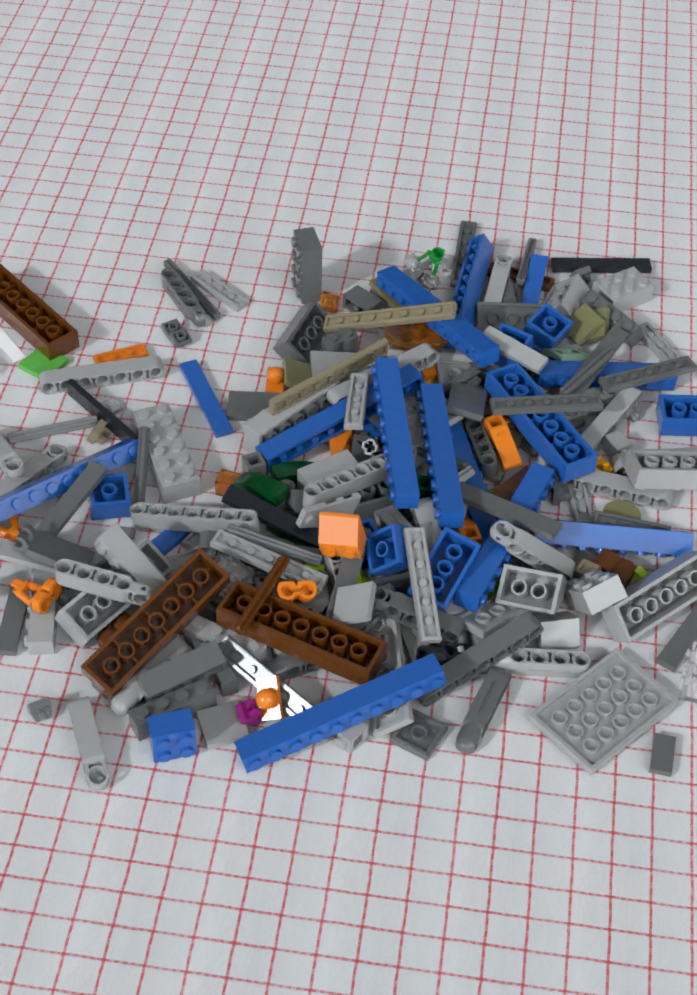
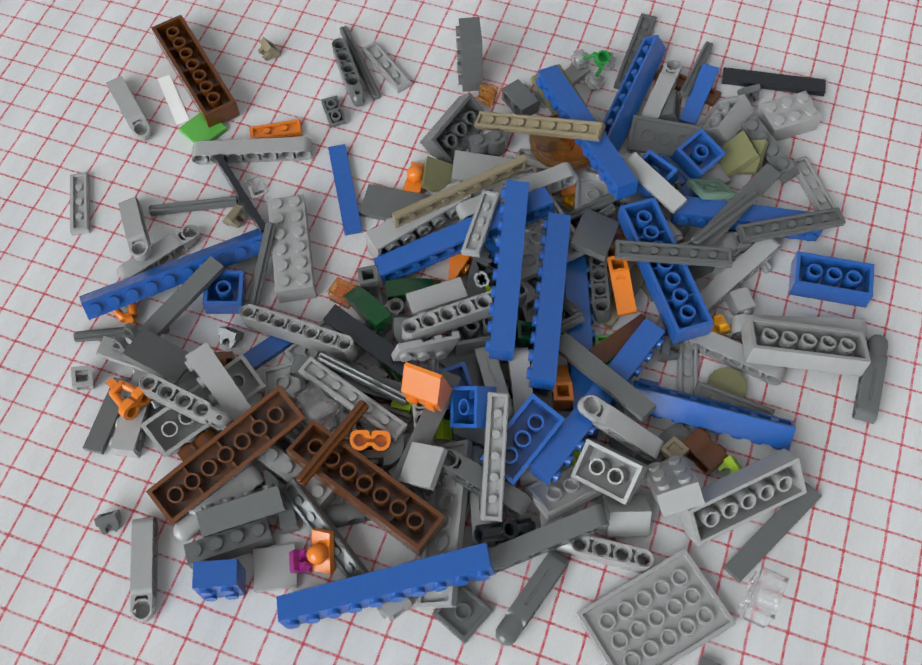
camera: 15 degrees right, 15 degrees up
(95, 286) = (268, 49): none -> dark tan tile

